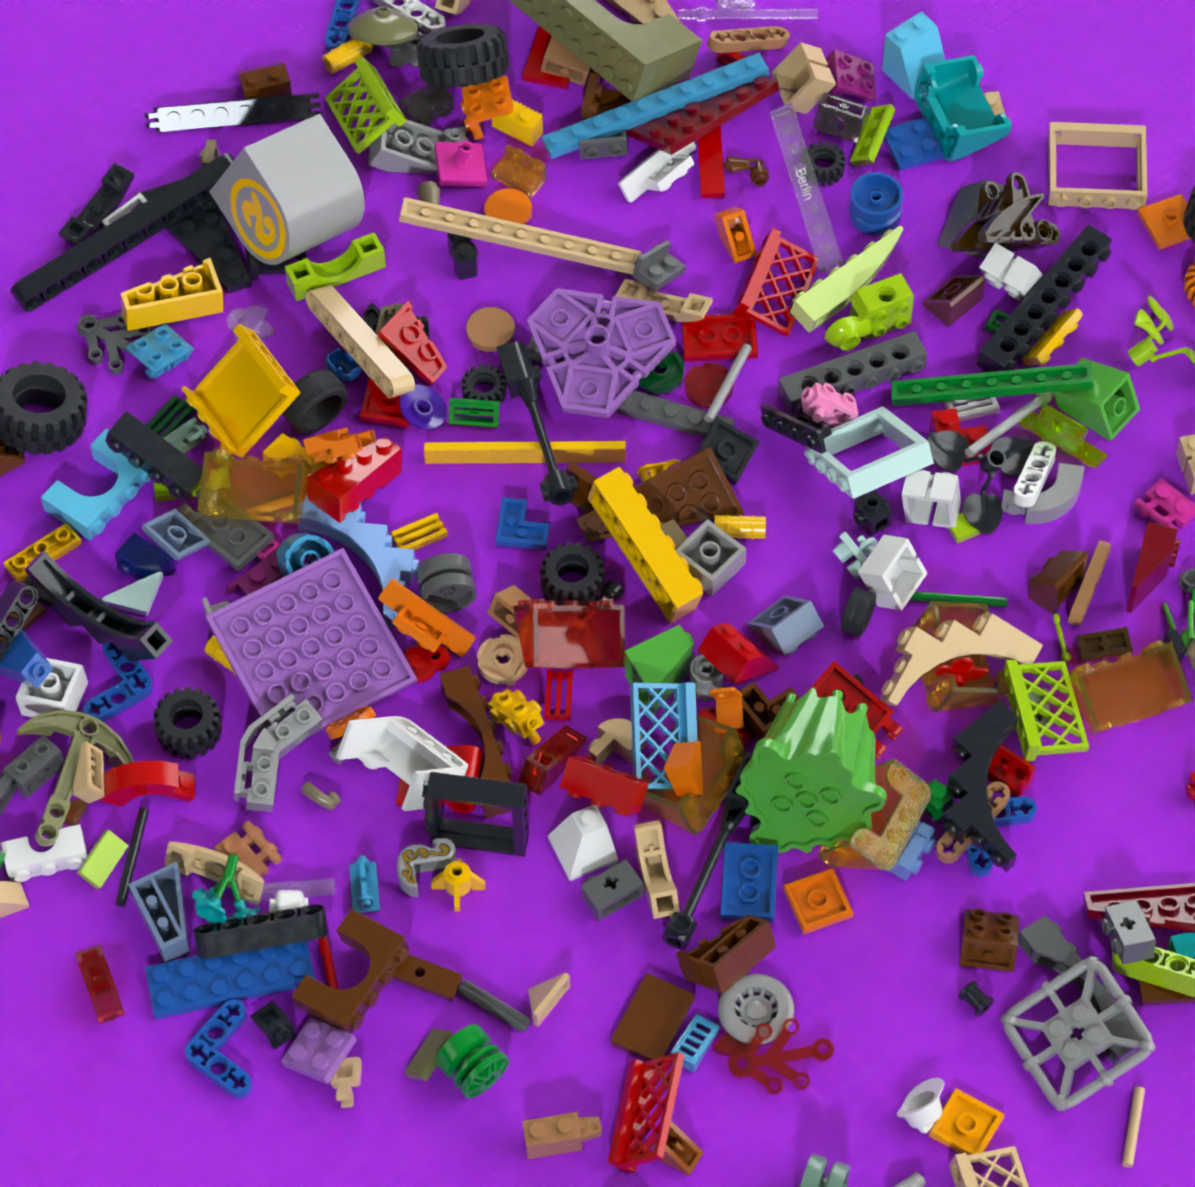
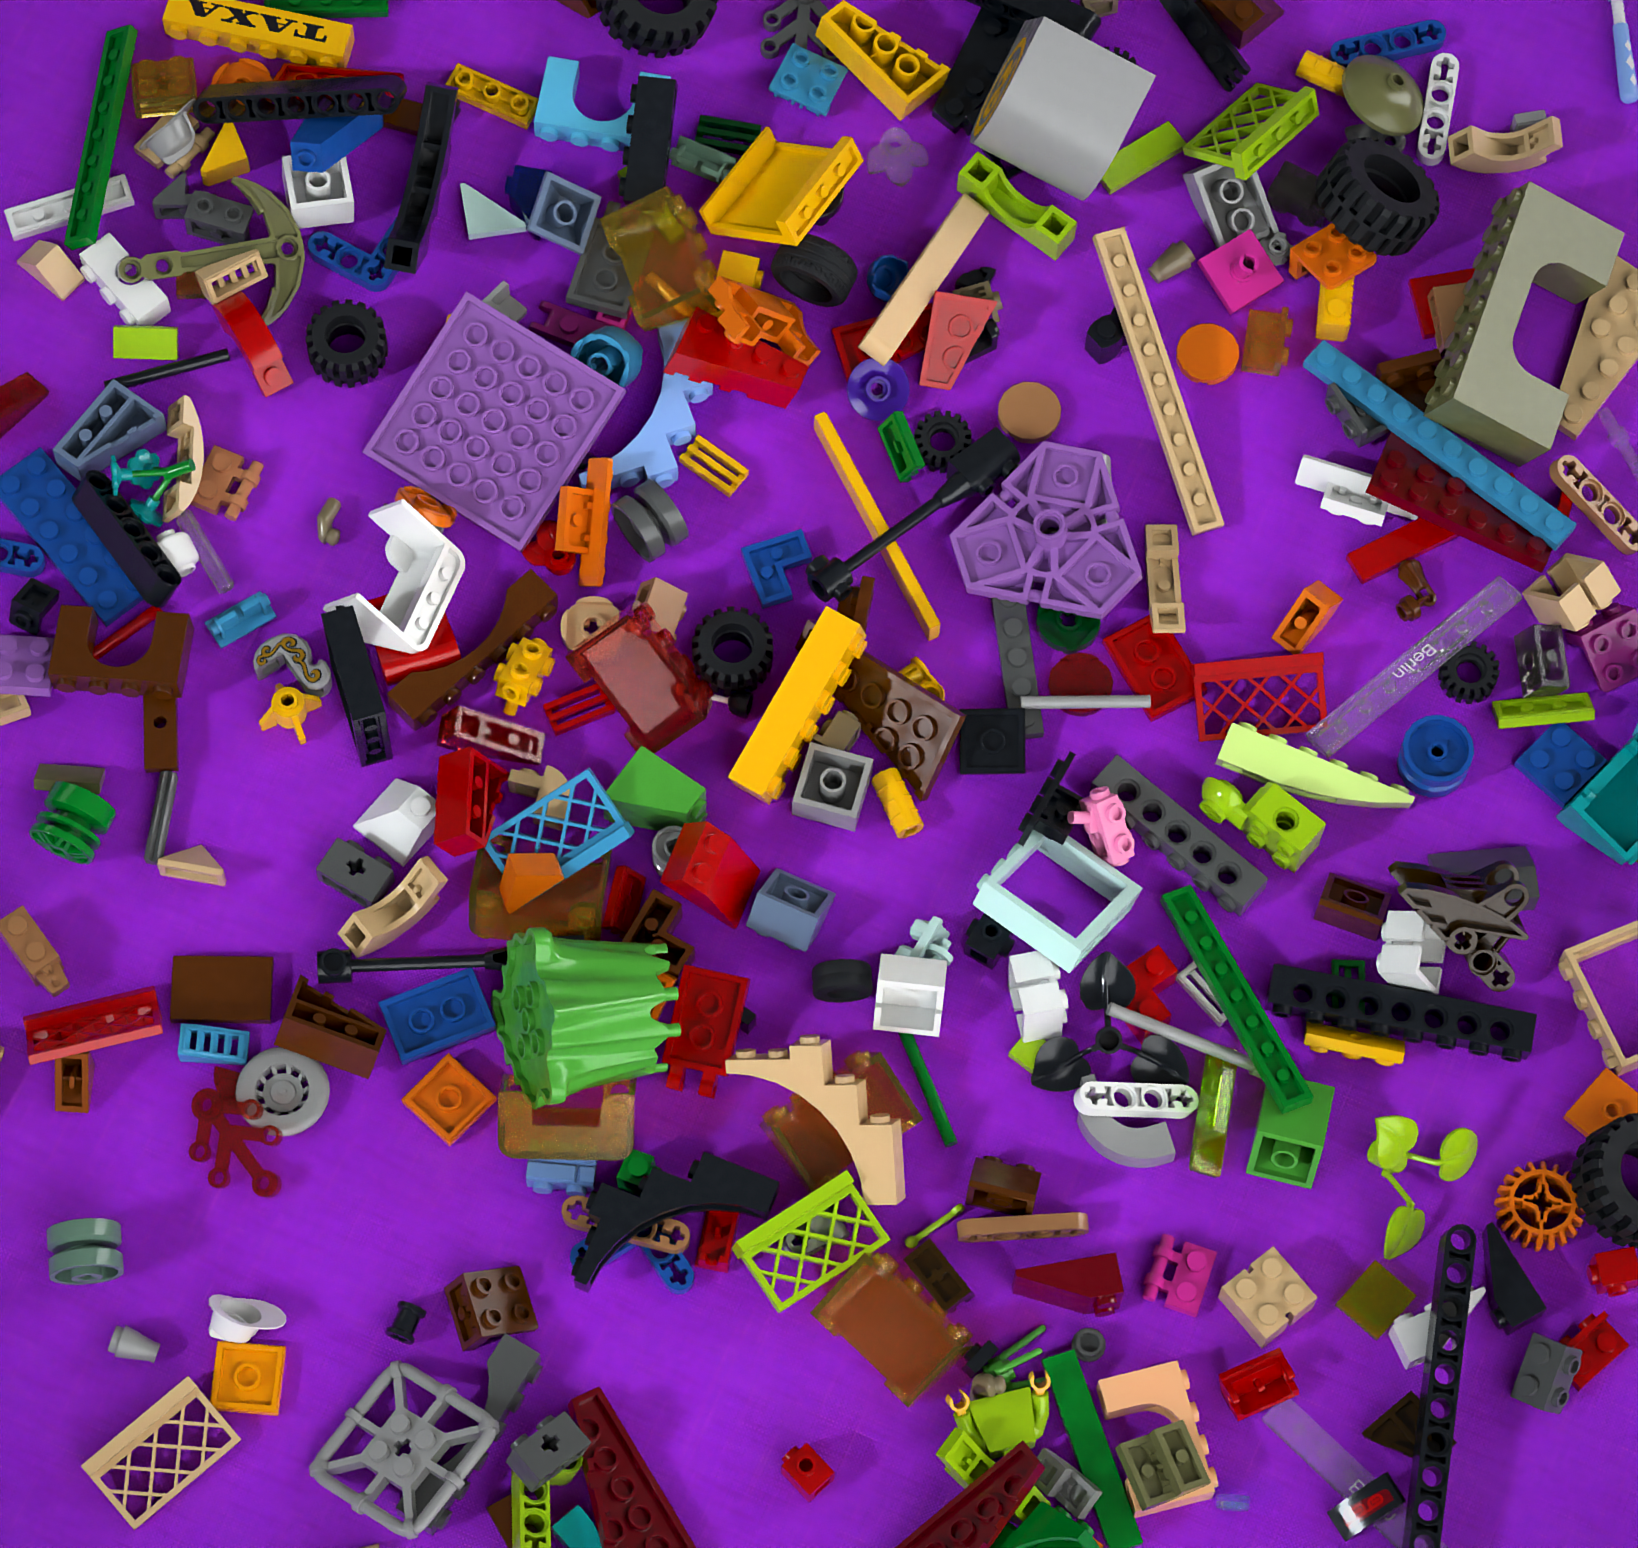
camera: 60 degrees right, 10 degrees up
(270, 747) = (341, 437): light grey brick -> none
(657, 267) = (1208, 553): dark grey bracket -> none
(728, 706) = (631, 894): orange bracket -> none
(962, 670) = (811, 1126): red plate -> none

